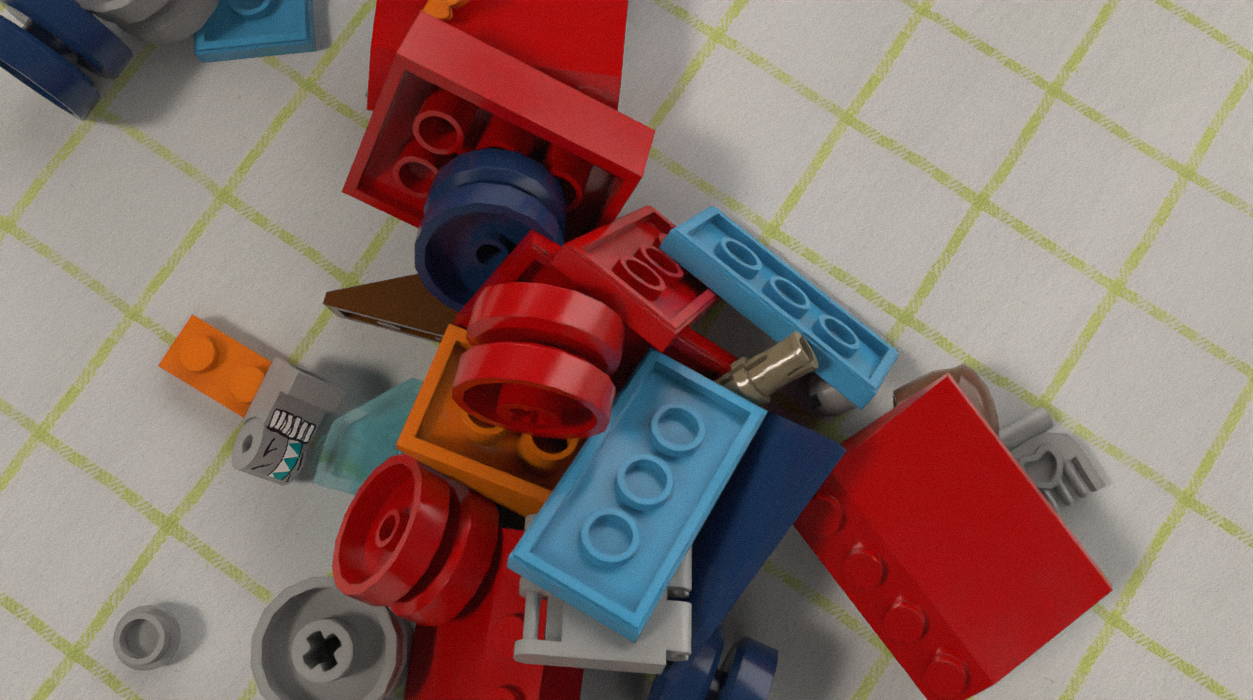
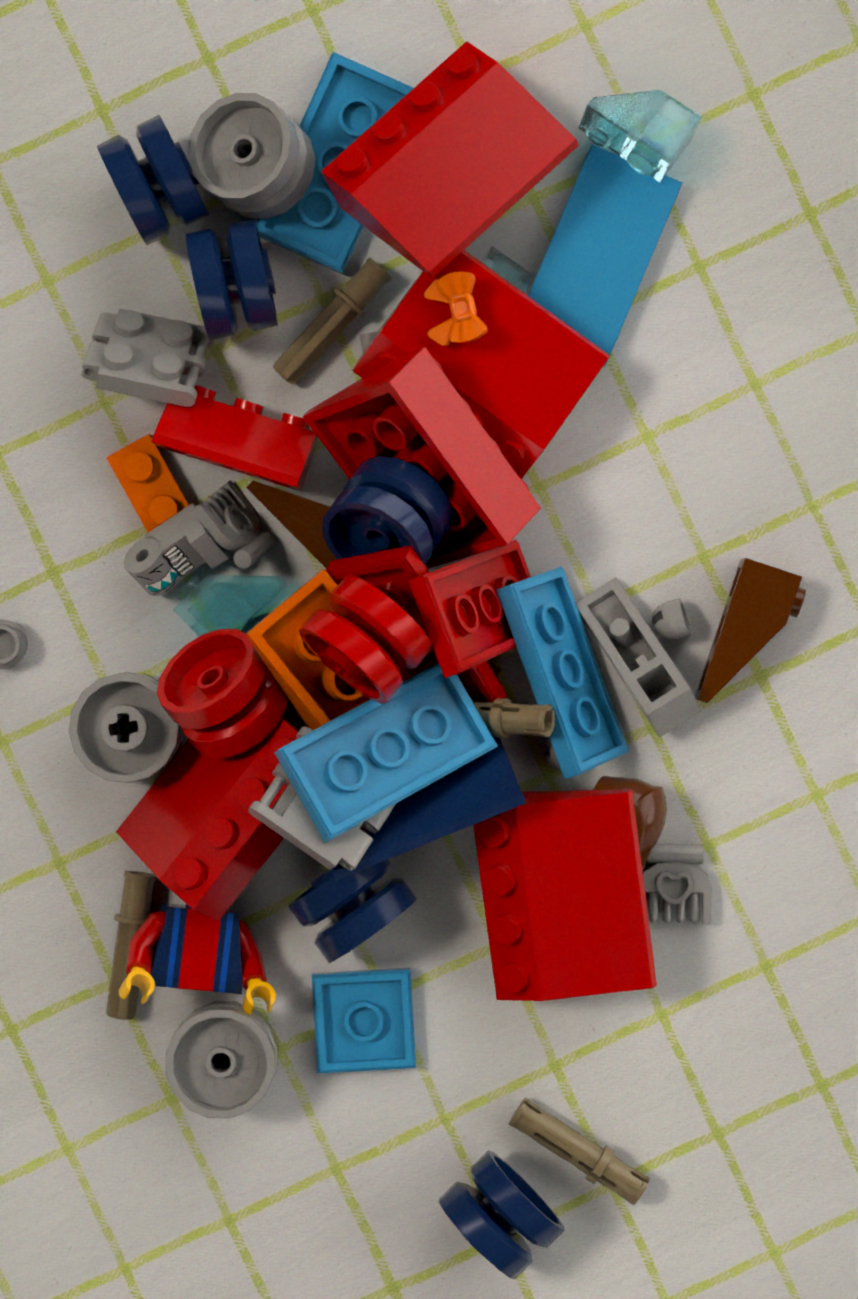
camera: 25 degrees right, 10 degrees up
(140, 229) = (146, 356): none -> light grey plate
(188, 96) = (232, 279): none -> dark blue wheel
(281, 264) = (239, 438): none -> red slope
(327, 95) = (331, 321): none -> dark tan axle
(334, 355) = (234, 525): none -> light grey piece
(854, 248) = (638, 657): none -> light grey slope
(858, 193) = (671, 620): none -> light grey hinge
(937, 134) = (752, 616): none -> reddish brown slope

